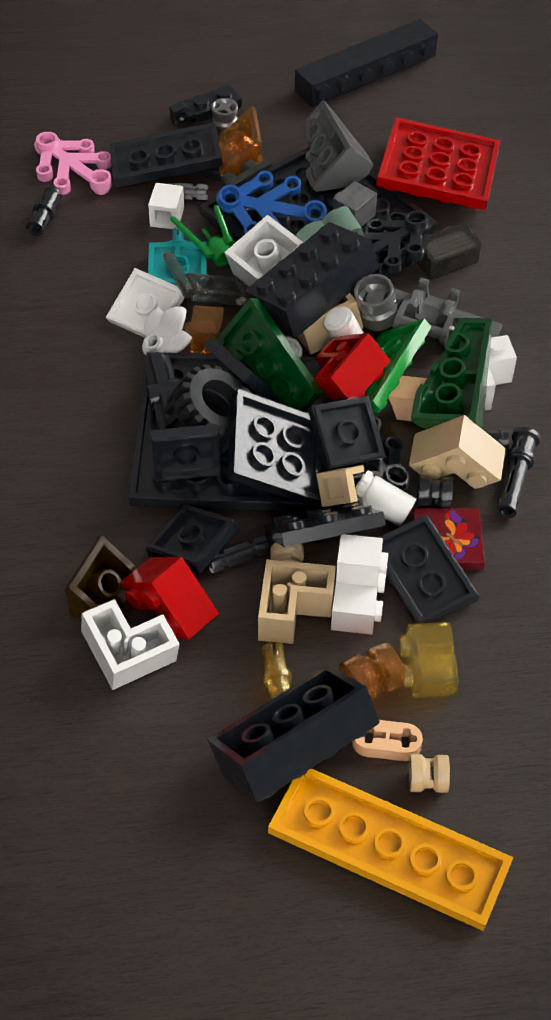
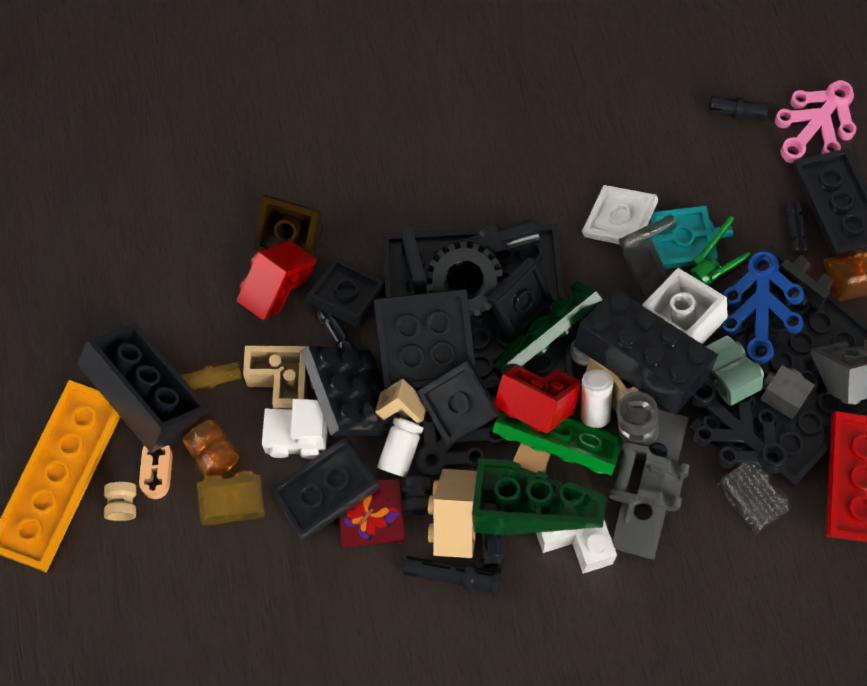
camera: 85 degrees right, 15 degrees up
(126, 651) = (218, 249): white brick -> none
(165, 202) = (766, 215): white brick -> none
(165, 331) = (576, 234): white plate -> none
(205, 323) = (596, 271): clear orange brick -> none

